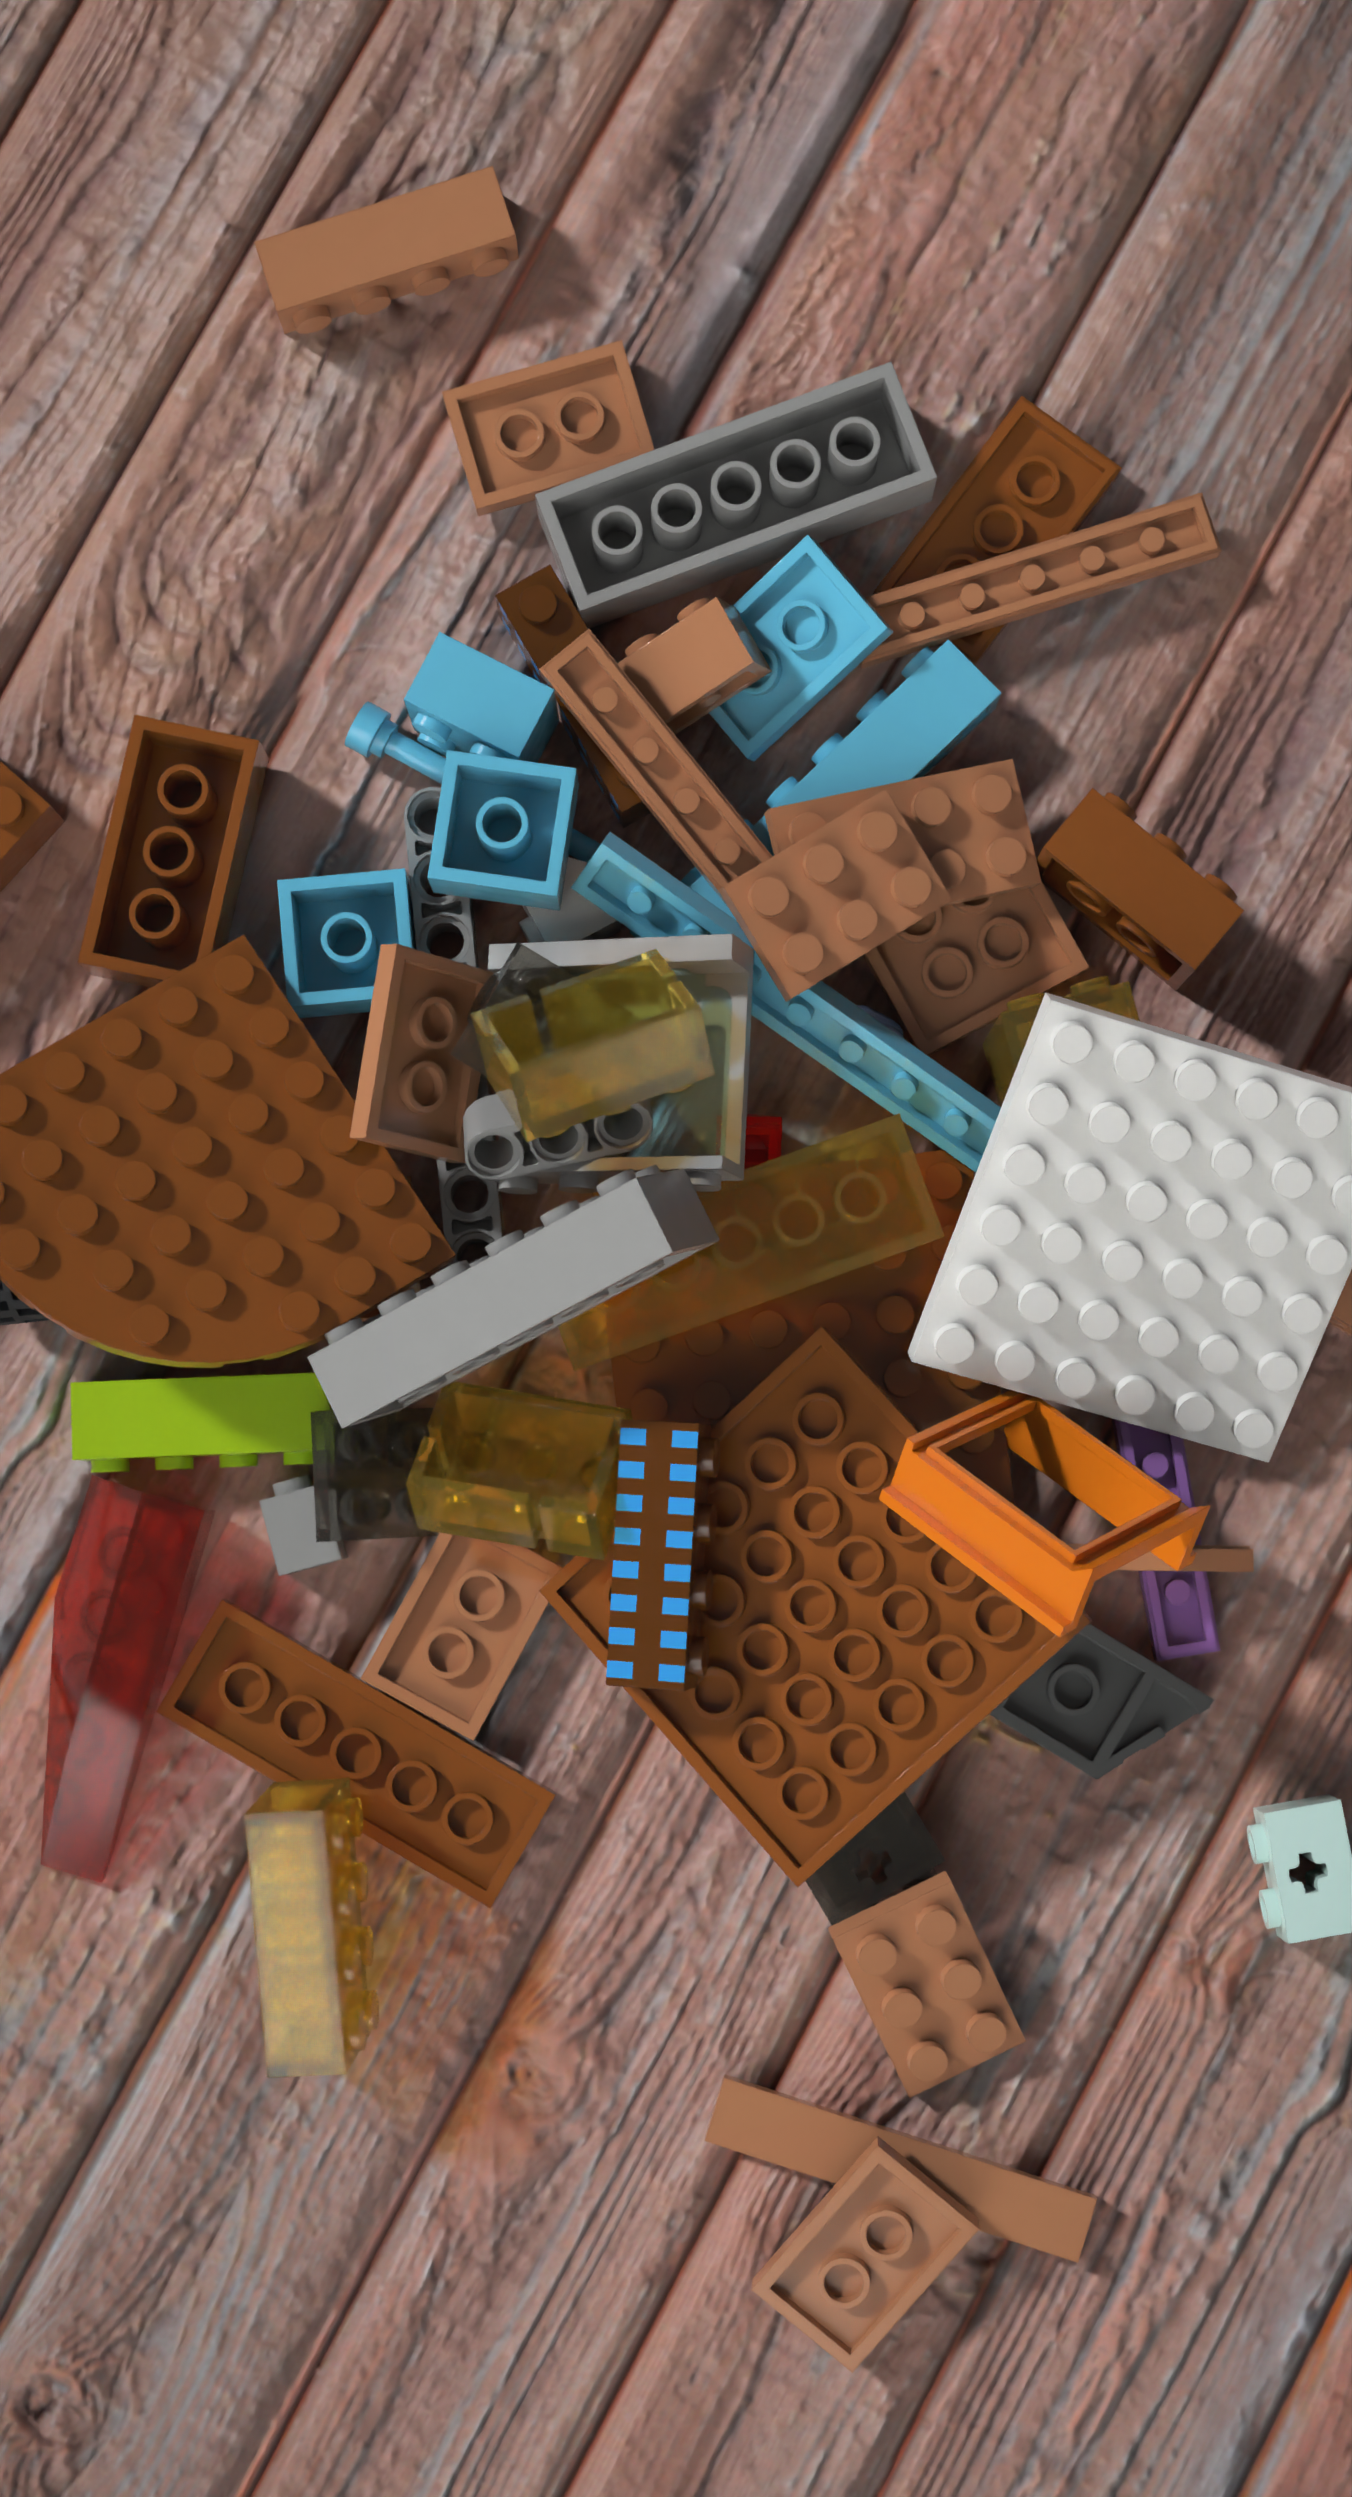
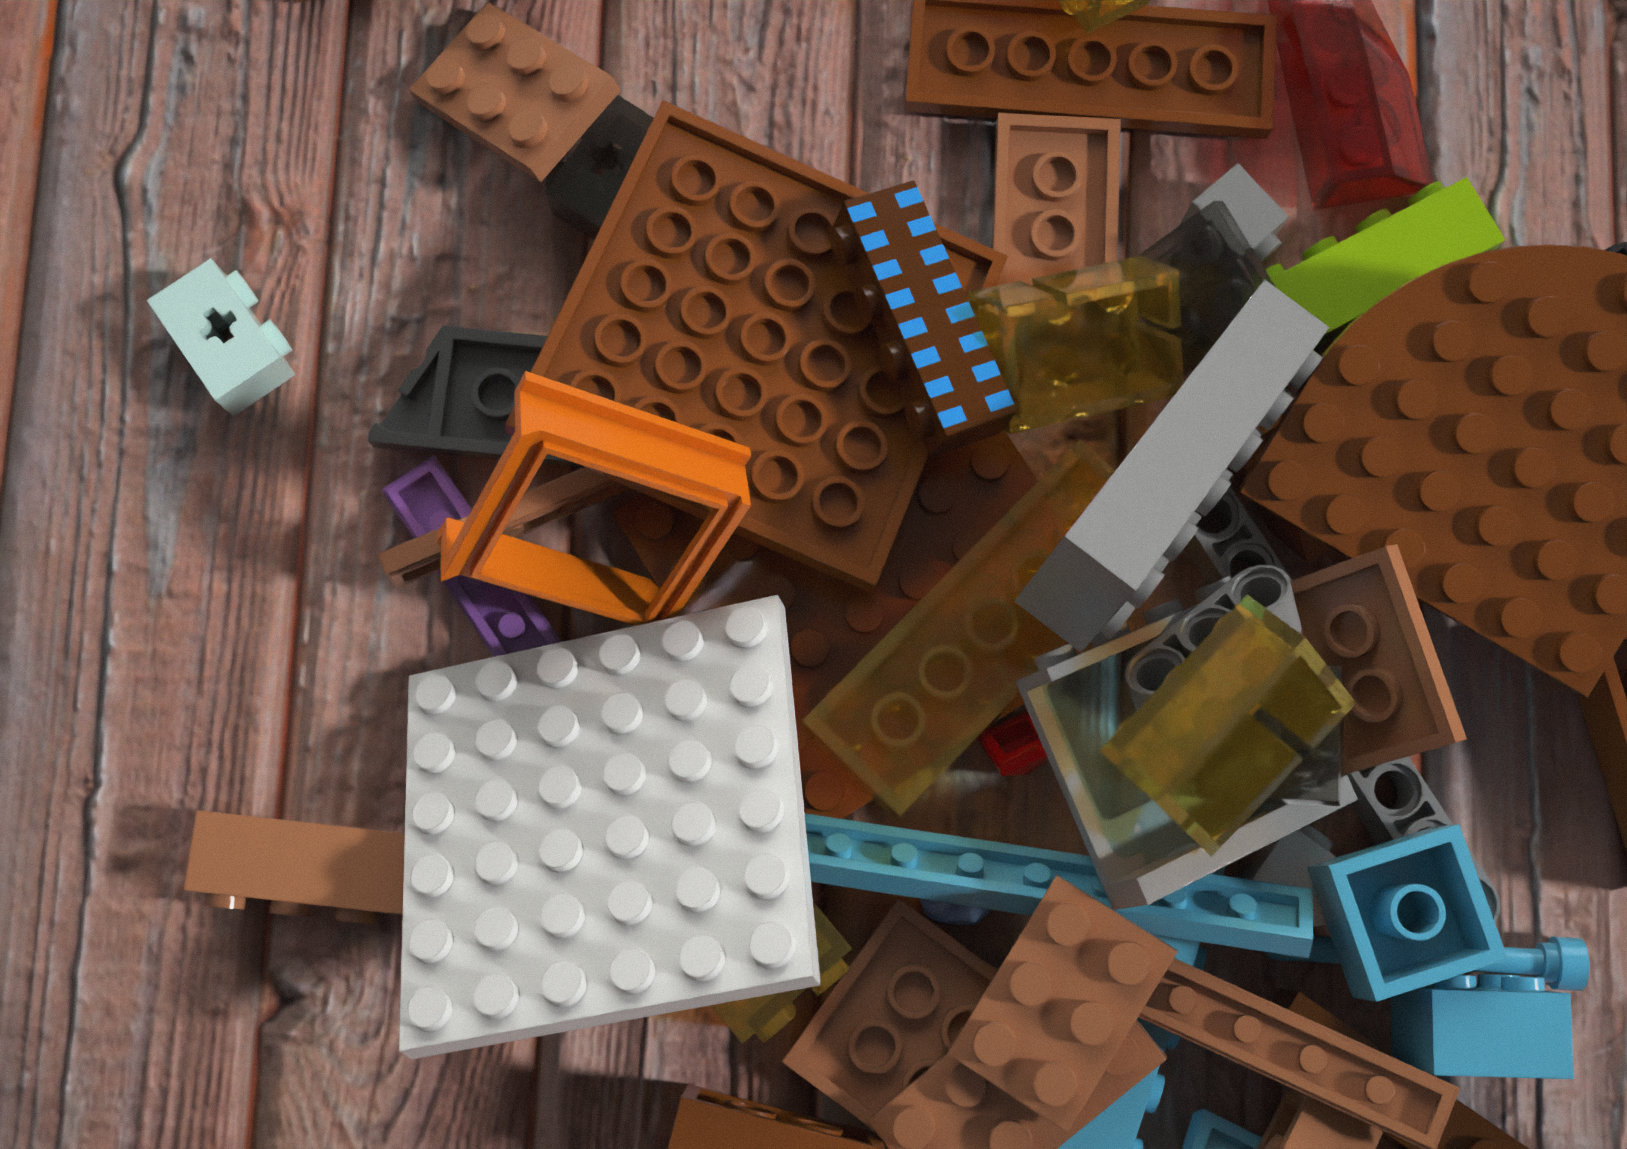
camera: 150 degrees right, 5 degrees down
(335, 937) = (1508, 751): medium azure brick -> none

